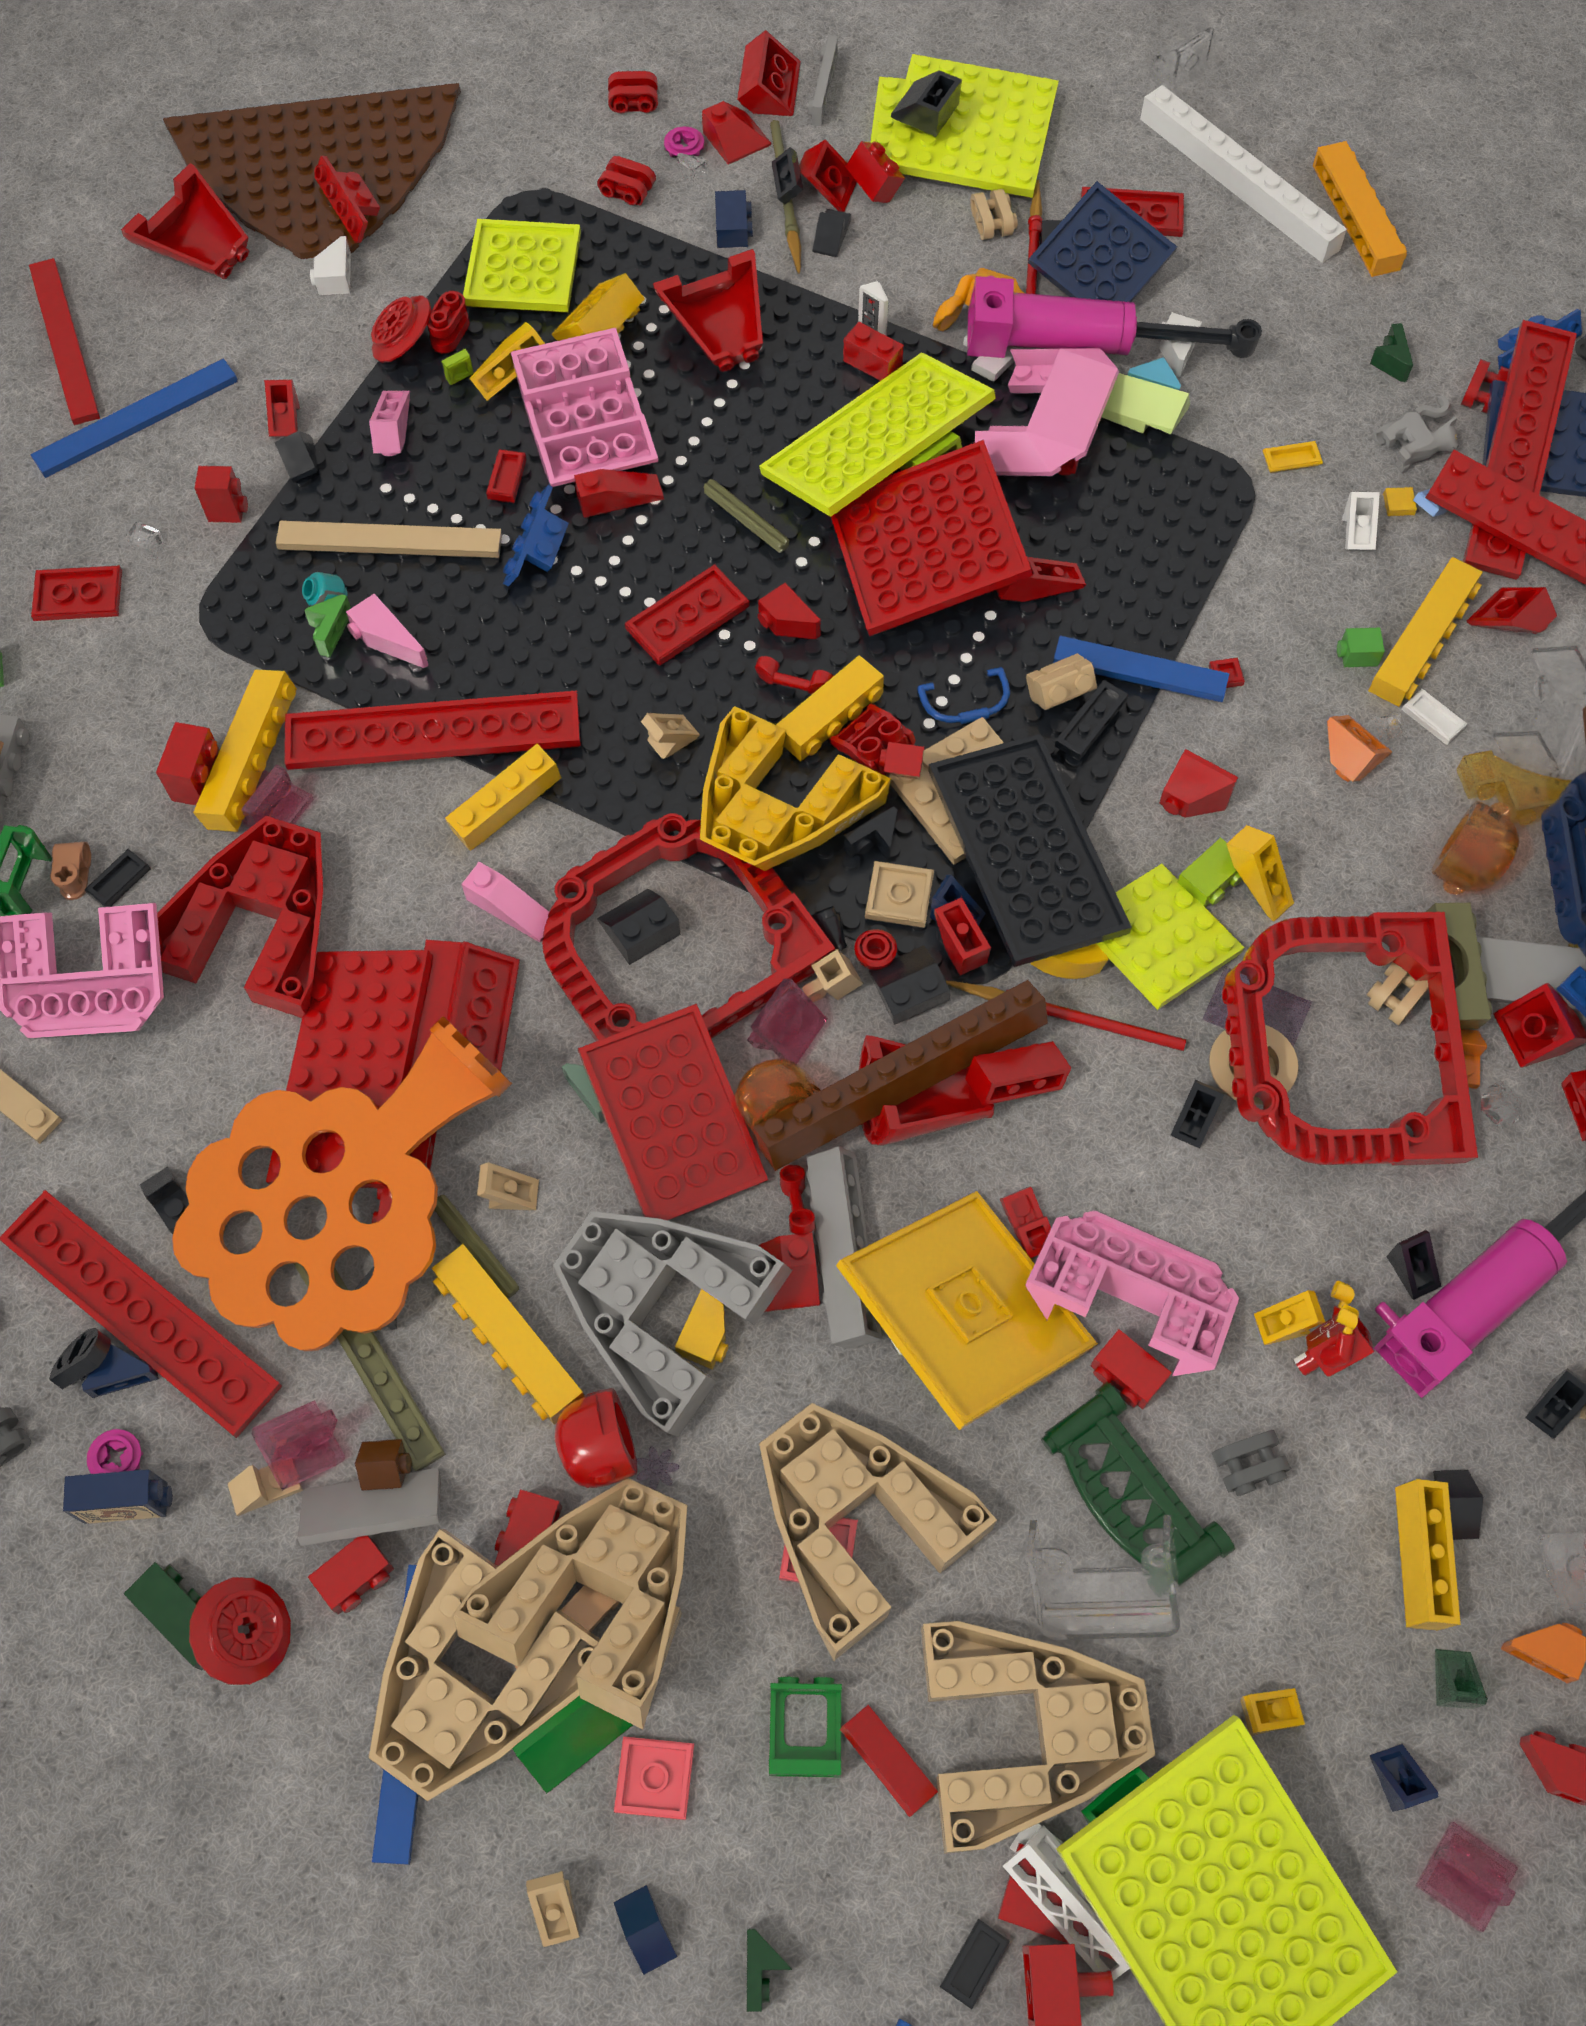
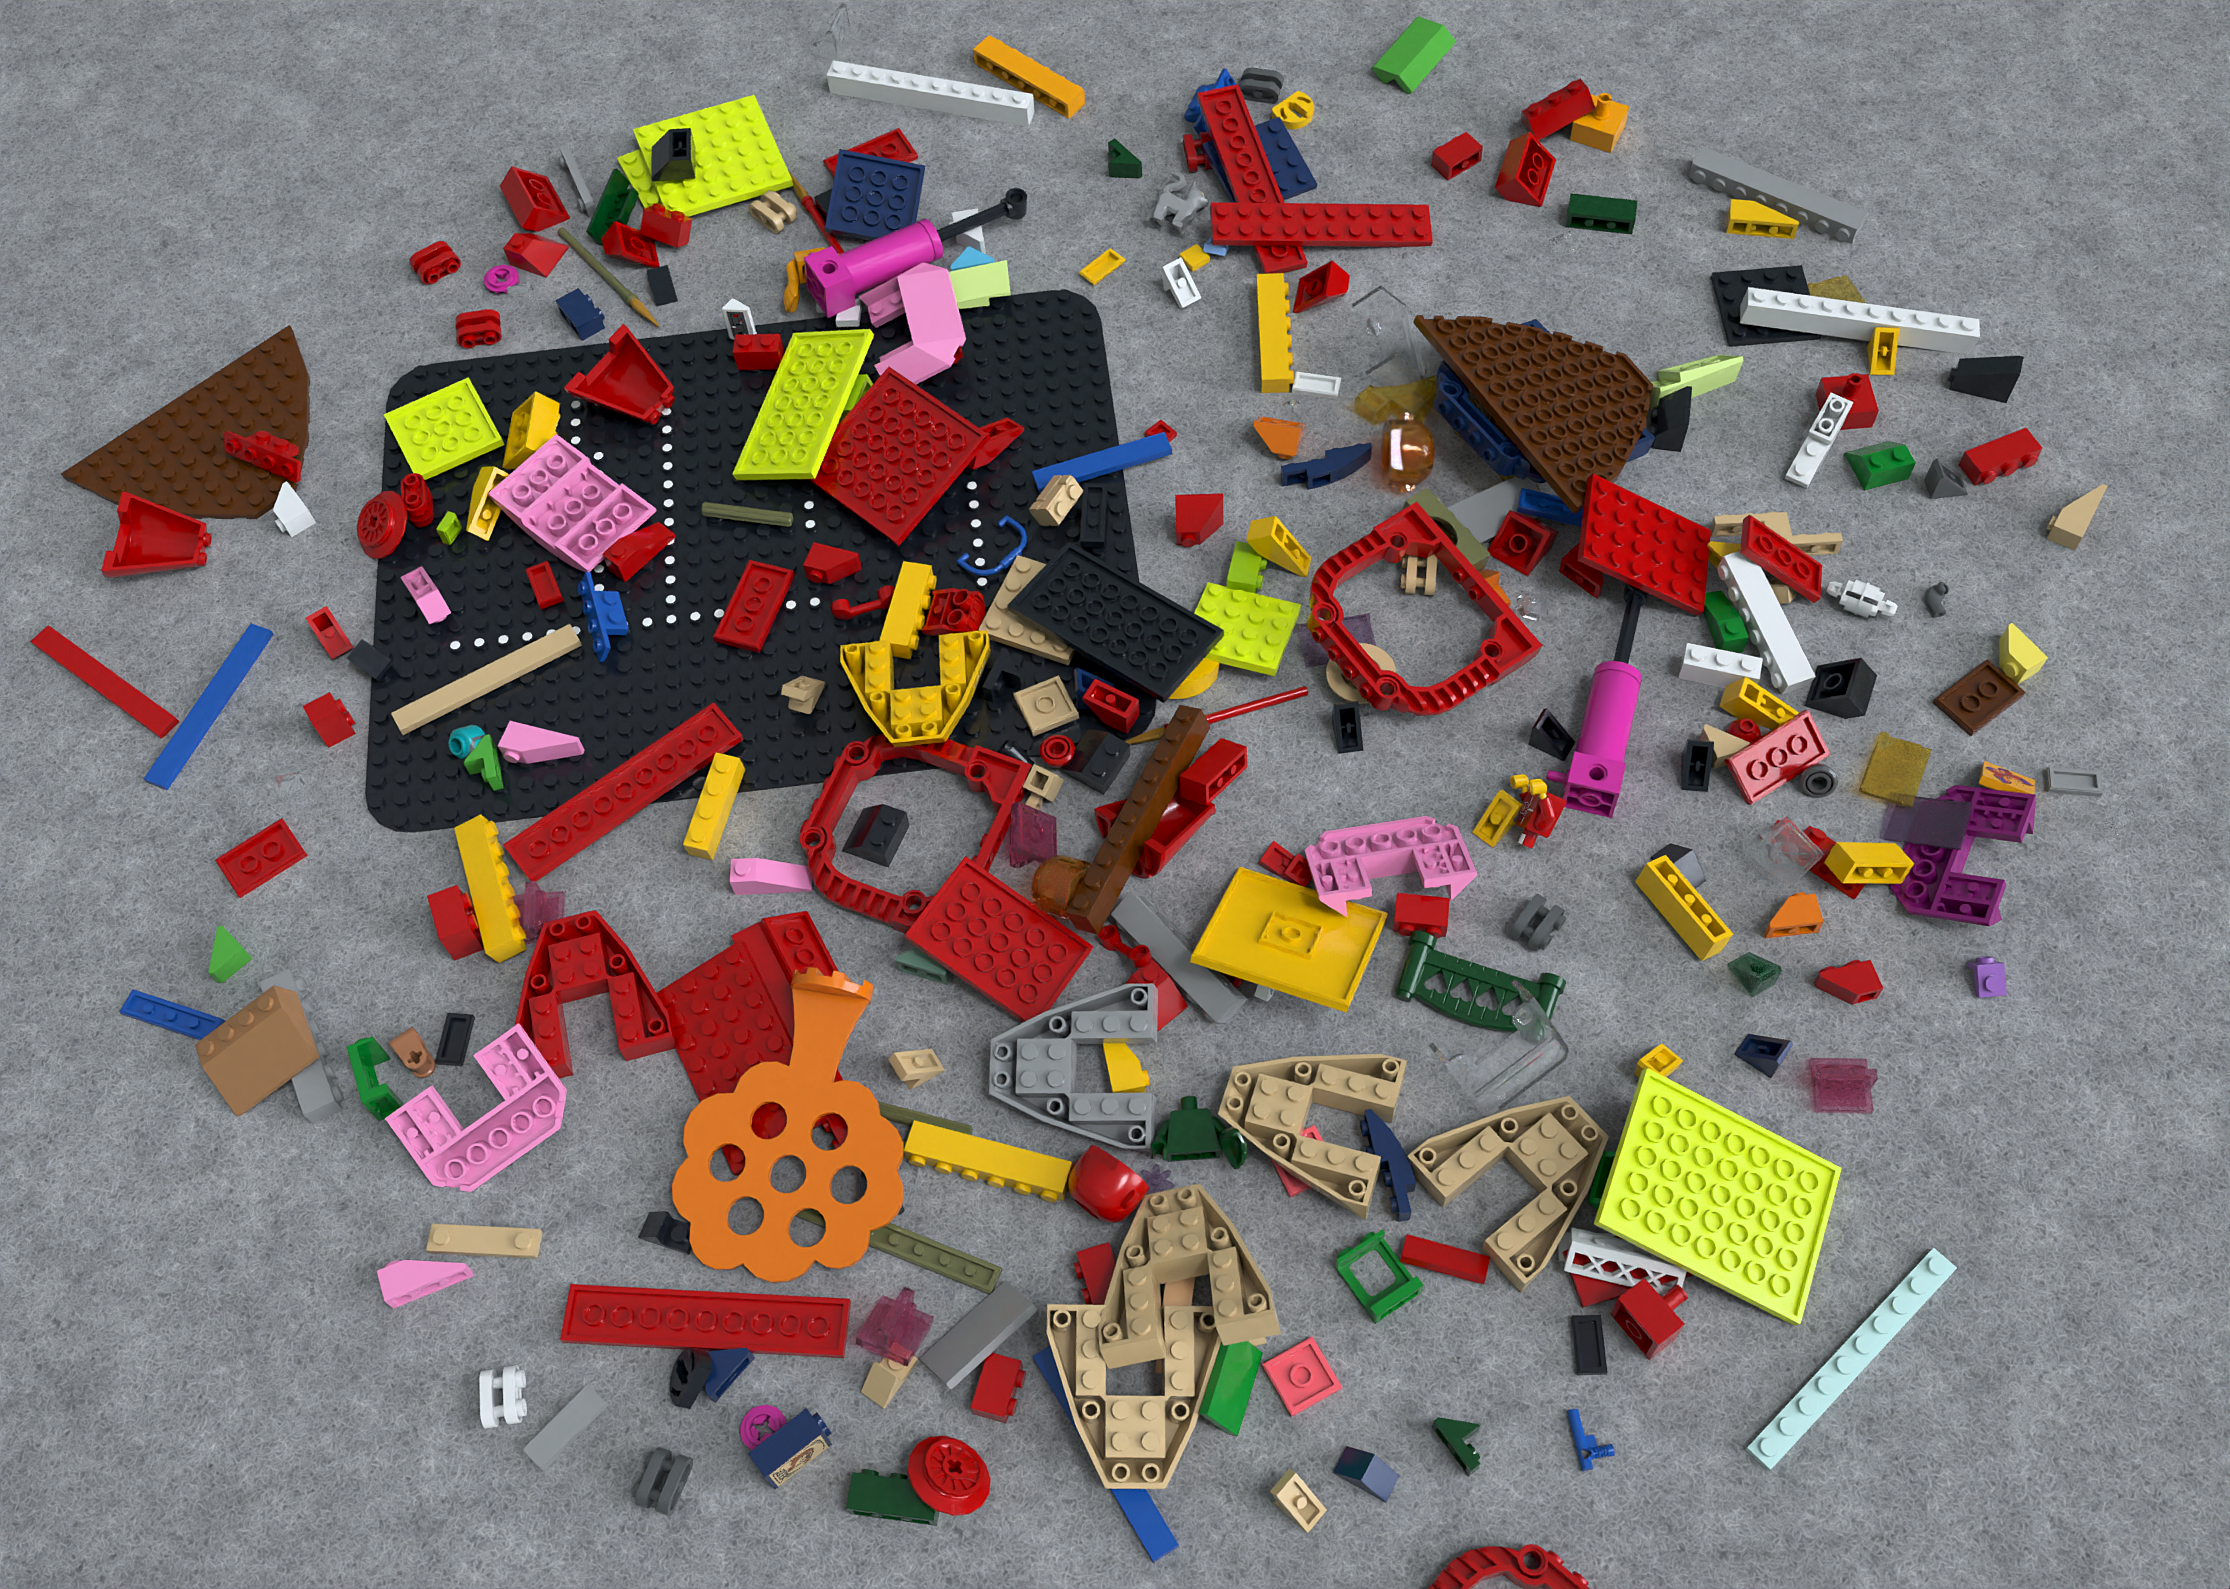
camera: 30 degrees left, 5 degrees down
(382, 1464) = (966, 1301): reddish brown brick -> none
(725, 1447) = (1197, 1136): none -> dark green torso
(787, 175) = (602, 261): black plate -> none
(840, 124) = (614, 205): none -> dark green bracket
(902, 760) = (987, 613): red brick -> none
(908, 1604) = (1393, 1159): none -> dark blue slope
(1361, 647) = (1238, 366): bright green brick -> none
(1393, 818) = (1334, 467): none -> dark blue slope

